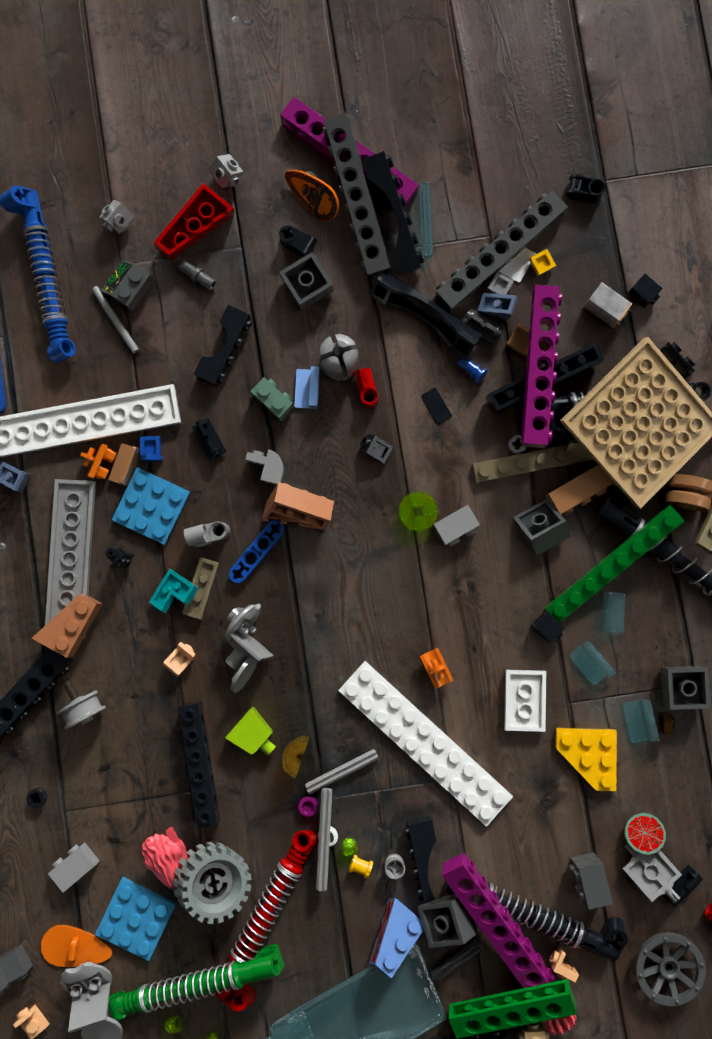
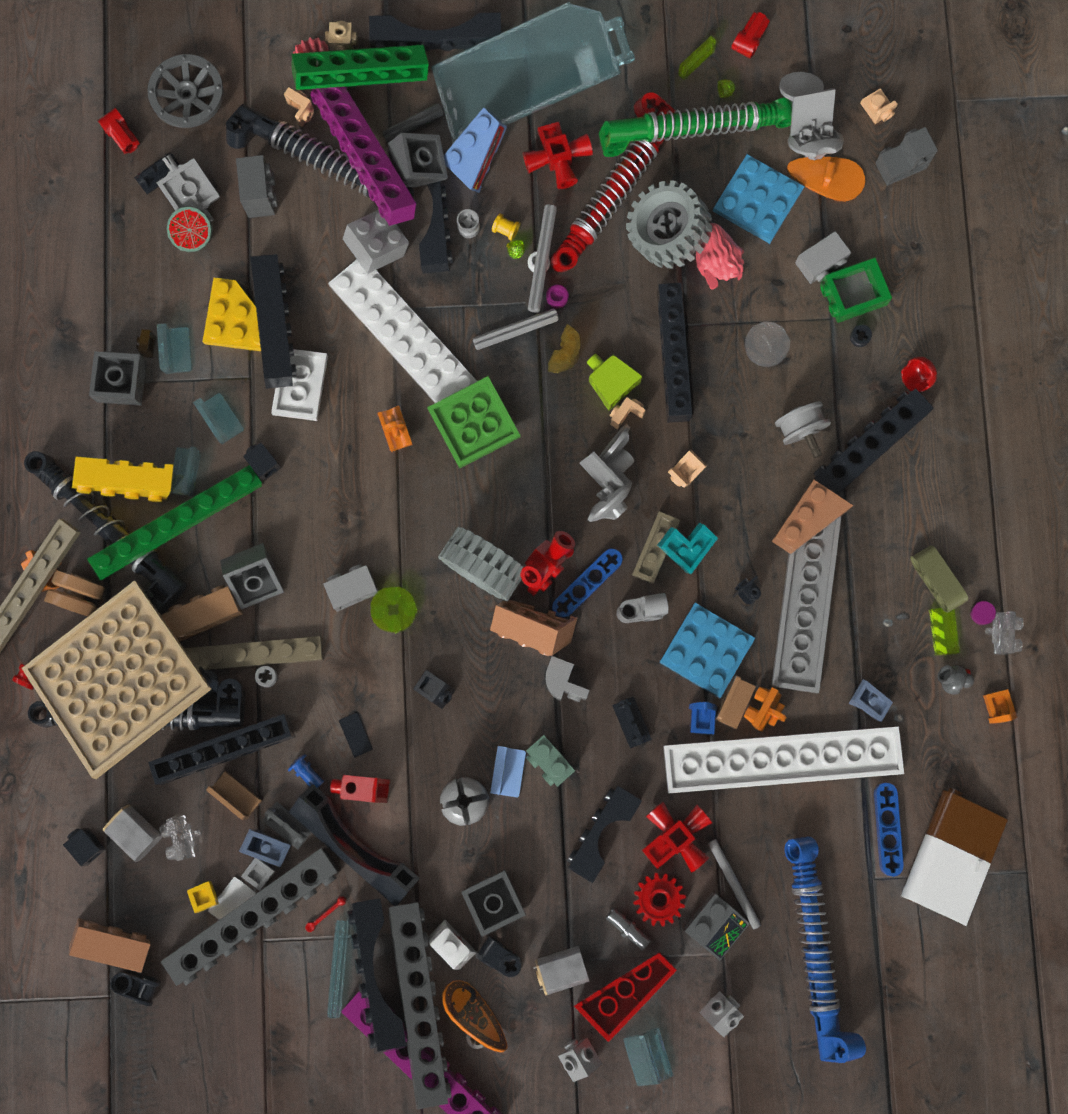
camera: 175 degrees left, 5 degrees down
(42, 839) = (855, 290): none -> green window
(119, 781) = (767, 344): none -> clear tile
(163, 349) = (676, 837): none -> red brick
(172, 179) = (648, 1058): none -> clear light blue panel
(181, 307) = (671, 903): none -> red gear
(241, 704) = (621, 412): none -> light nougat bracket
(247, 236) = (561, 970): none -> flat silver piece
(290, 562) = (547, 562): none -> red brick
(320, 942) = (557, 154): none -> red brick
(336, 244) = (451, 945): none -> white torso
(345, 553) = (481, 563): none -> light grey wheel
(366, 387) = (436, 766): red piece -> none
(368, 680) = (473, 422): none -> bright green plate
(424, 359) = (361, 788): none -> red torso
(452, 250) = (312, 925): none -> red hinge
(476, 838) = (375, 241): none -> light grey brick
(541, 296) = (224, 797): magenta brick -> none
(558, 754) = (271, 321): none -> black brick
(568, 308) = (181, 836): none -> clear hips
(612, 215) = (109, 945): none -> nougat wedge
(666, 596) = (122, 478): none -> yellow wedge
(683, 364) = (63, 766): black hinge -> none

